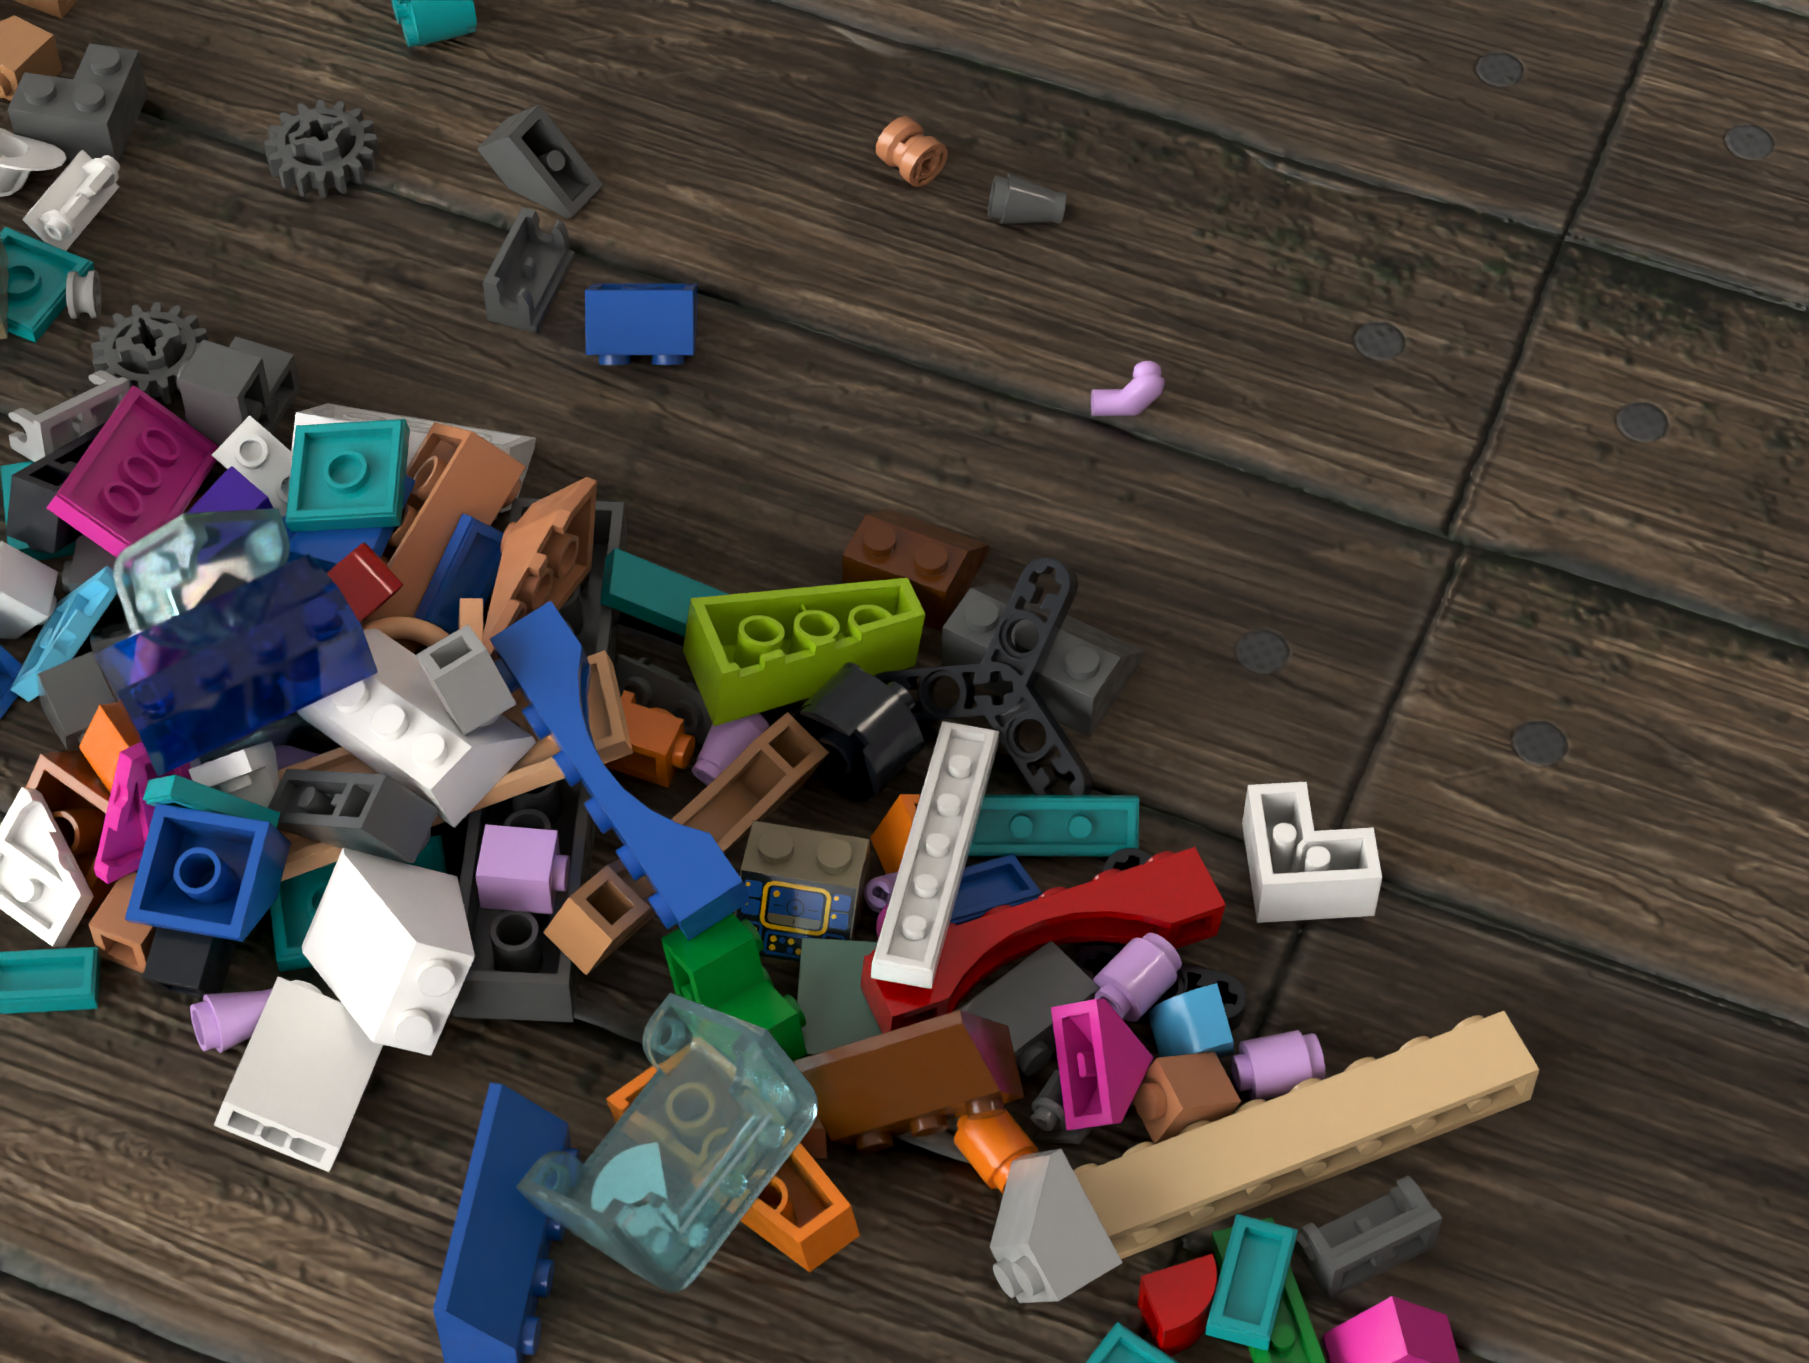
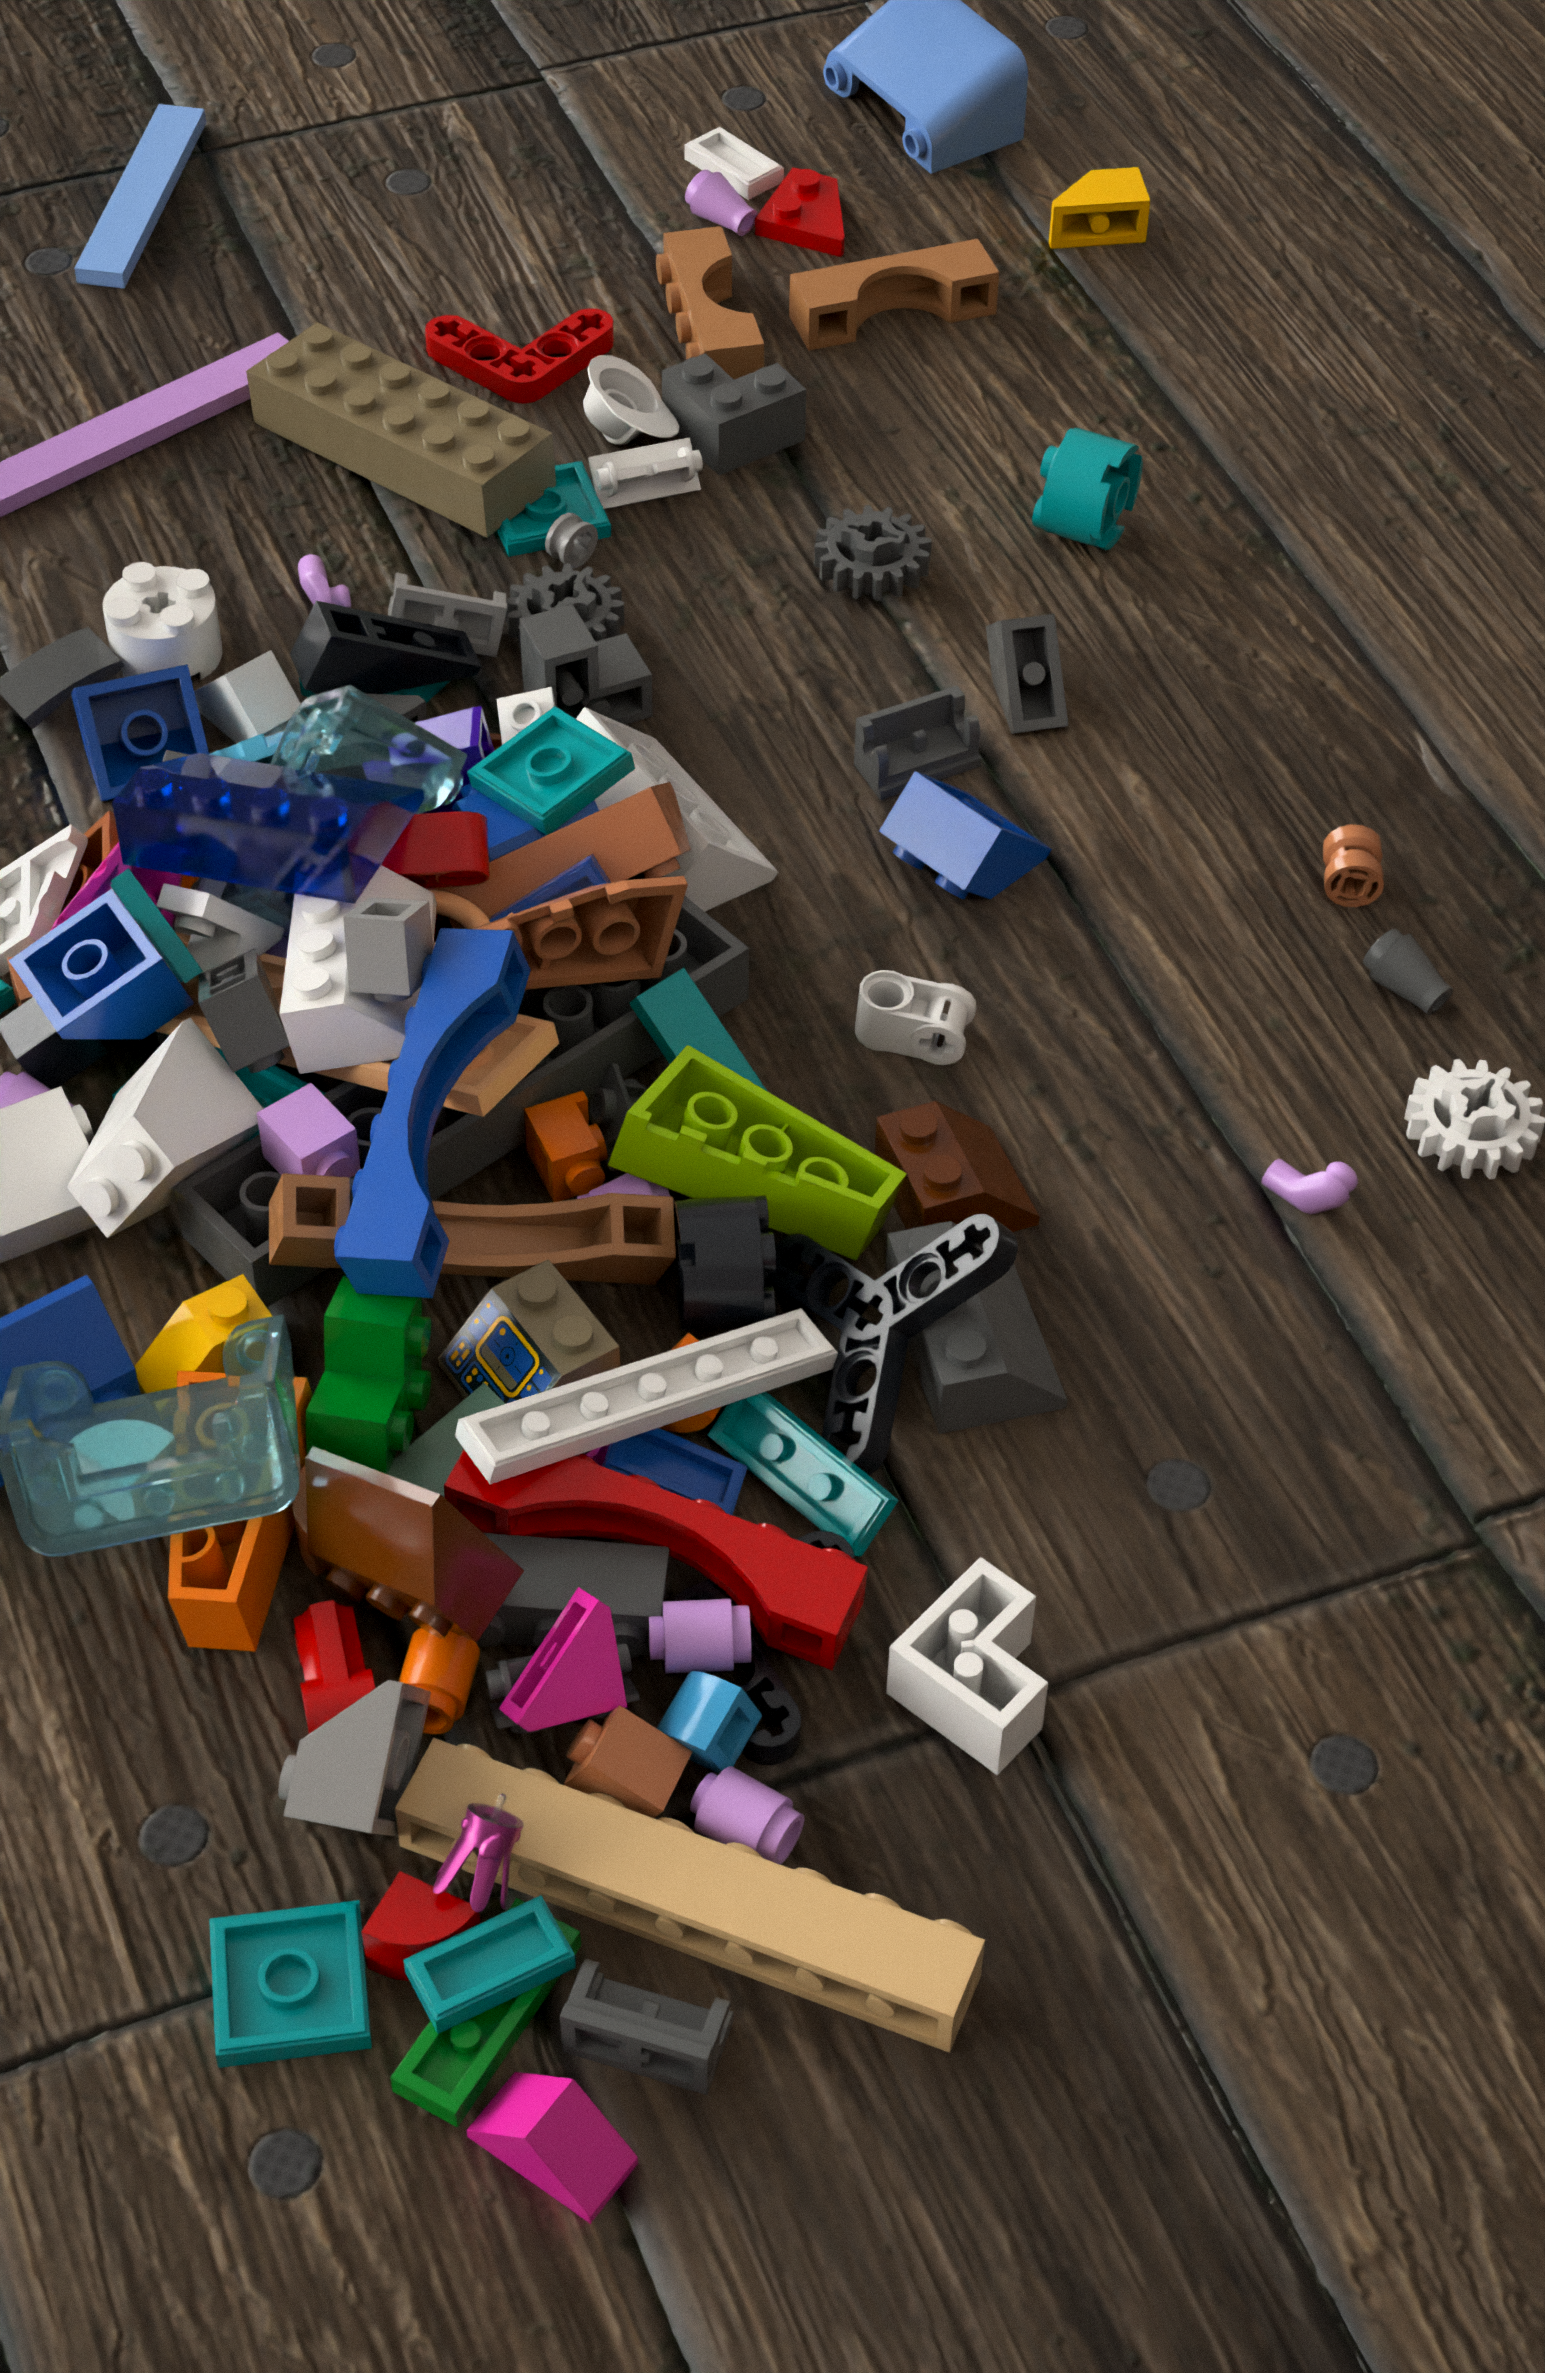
camera: 45 degrees right, 5 degrees down
(134, 474) = (420, 663): dark pink tile -> none
(585, 1068) = (197, 1334): none -> yellow slope
(758, 472) = (907, 1016): none -> white piece
(947, 1211) = (330, 1661): none -> red piece
(1175, 272) = (1474, 1119): none -> white gear
(1176, 1201) = (494, 1835): none -> flat silver piece

